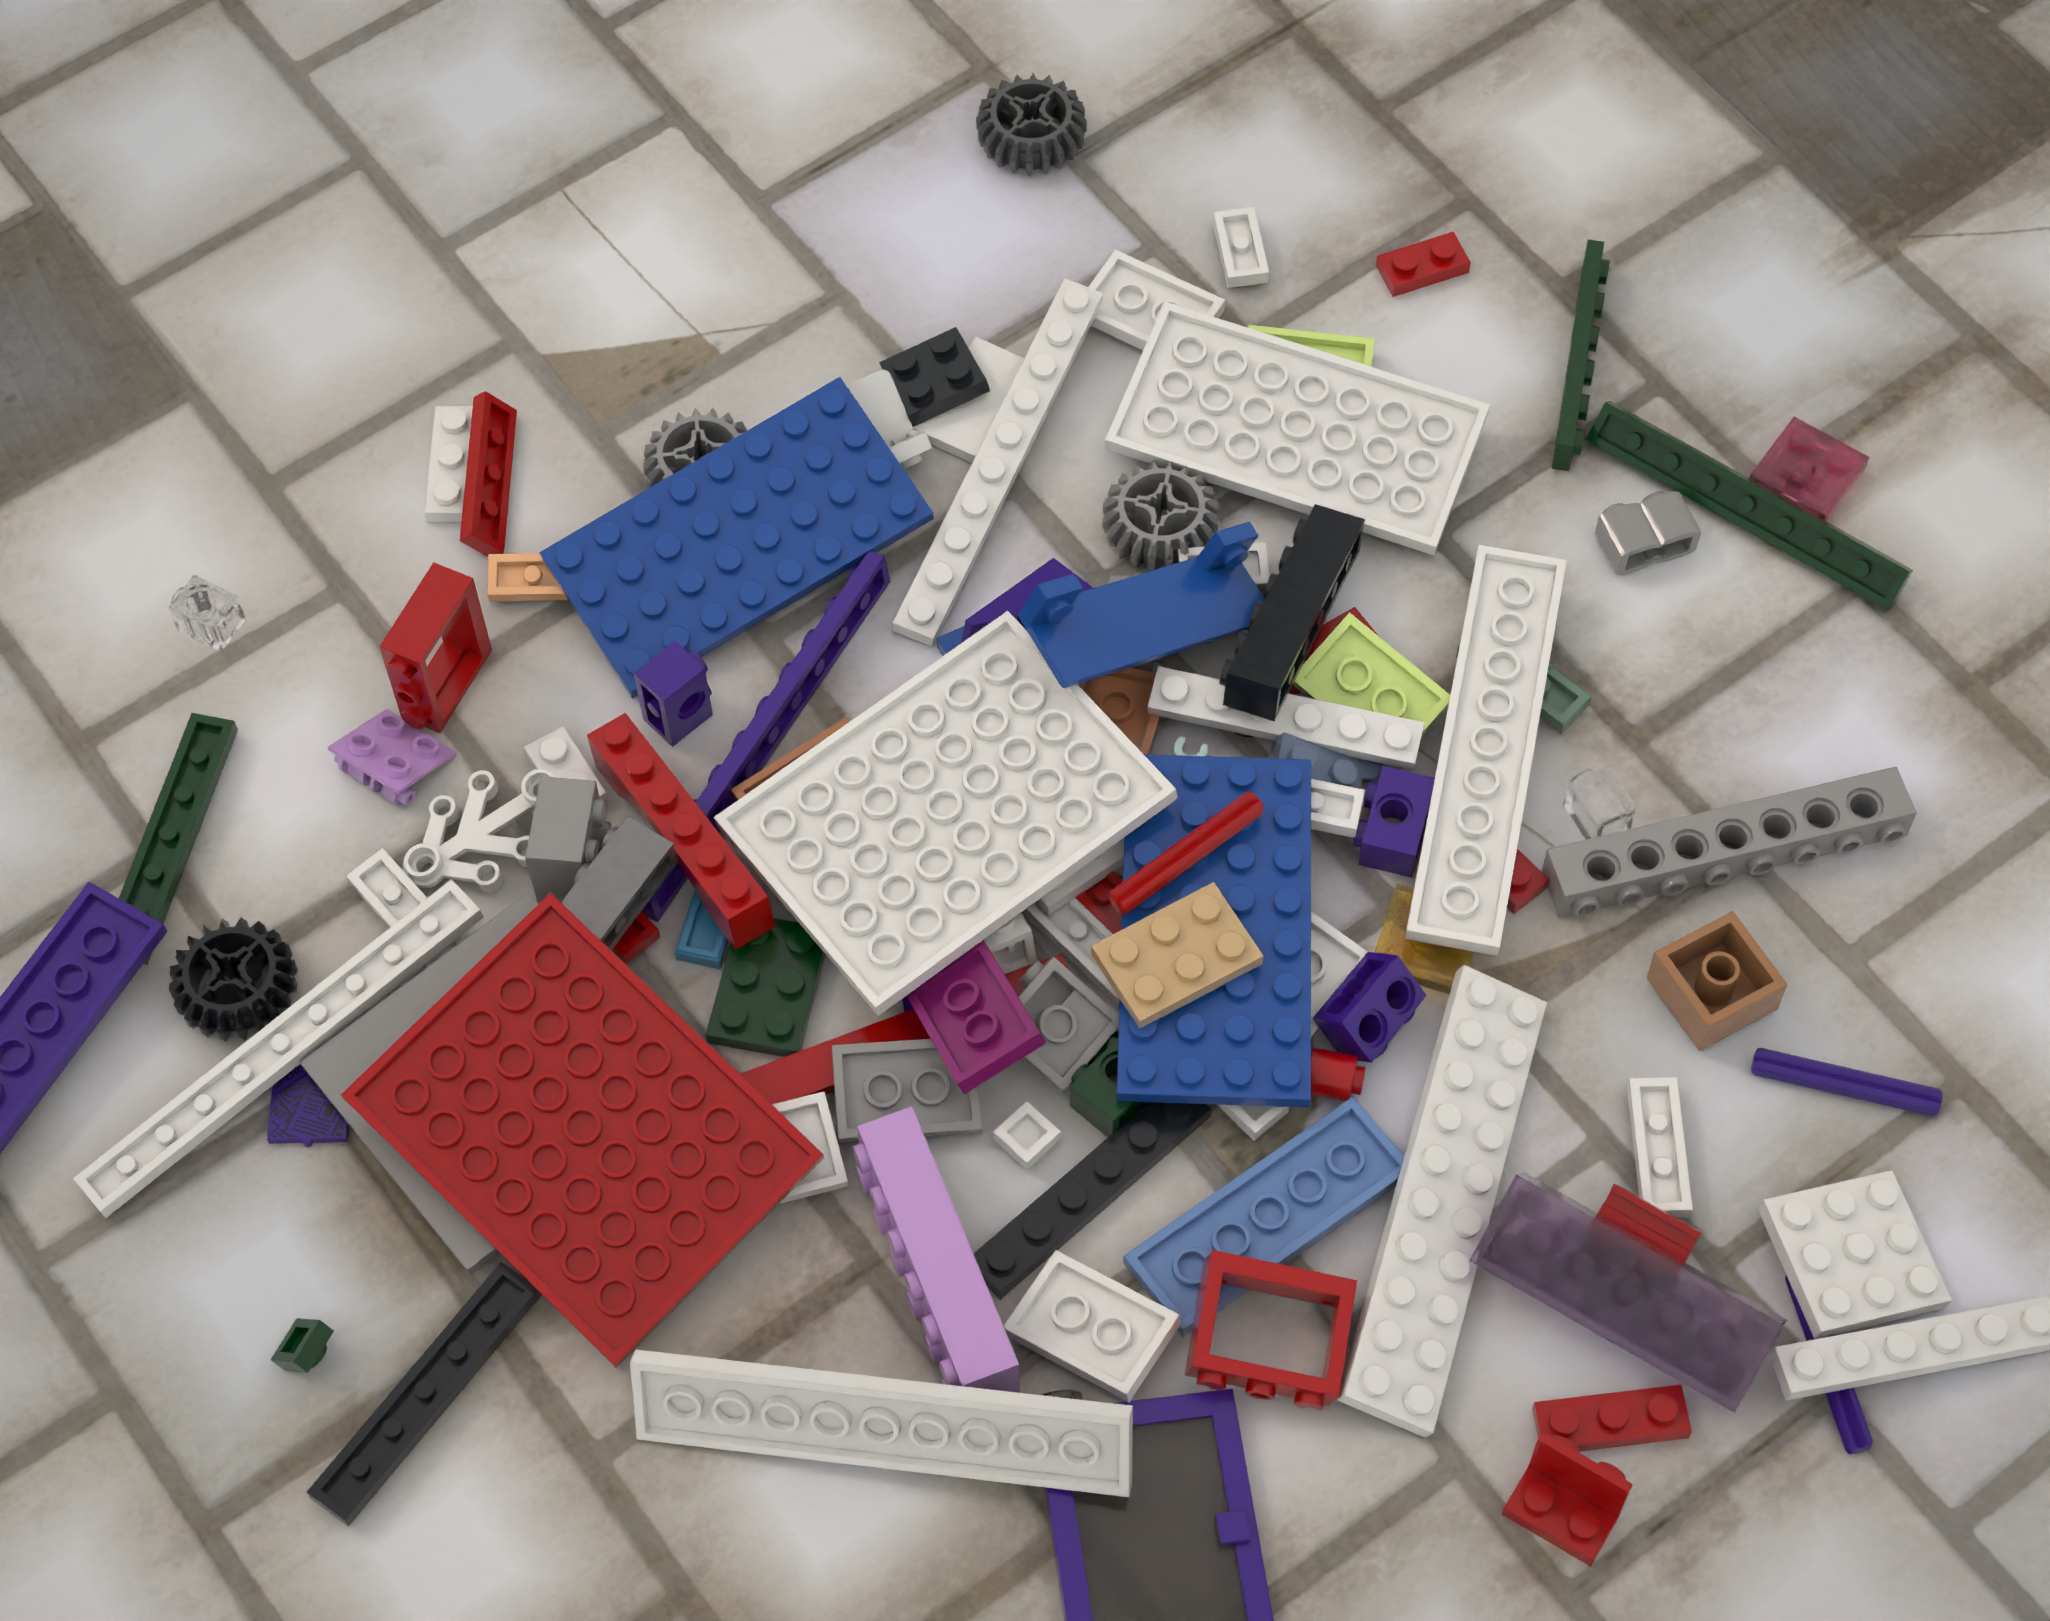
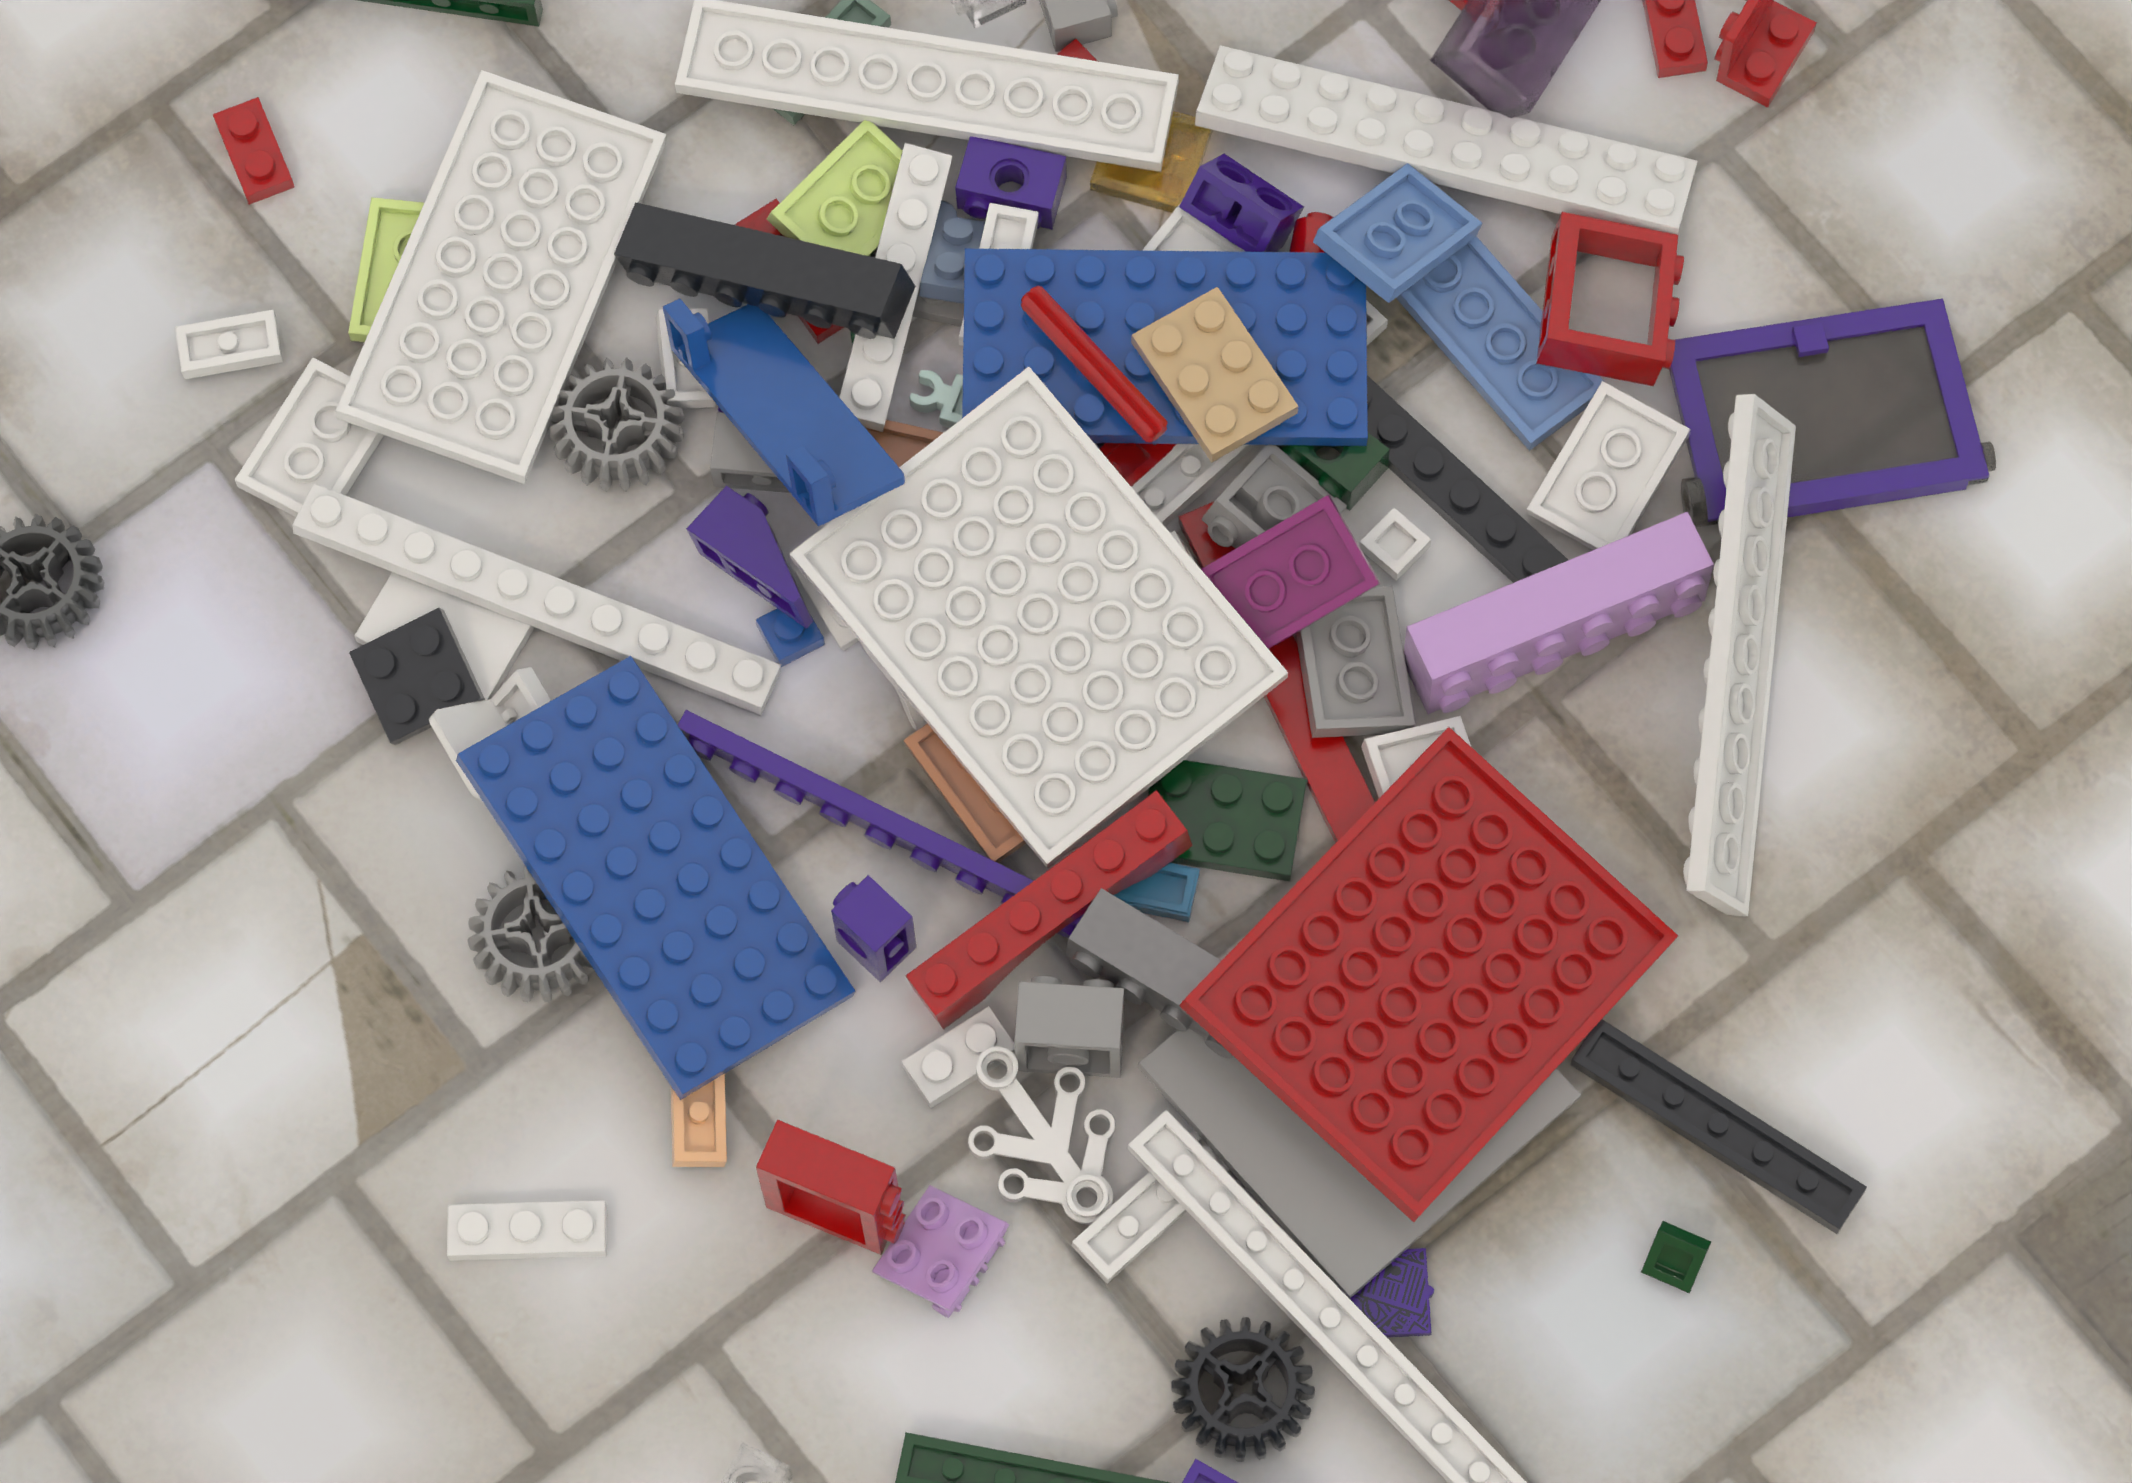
camera: 90 degrees left, 10 degrees up
(488, 475) = (537, 1179): red plate -> none
(1329, 1126) = (1397, 232): none -> medium blue plate

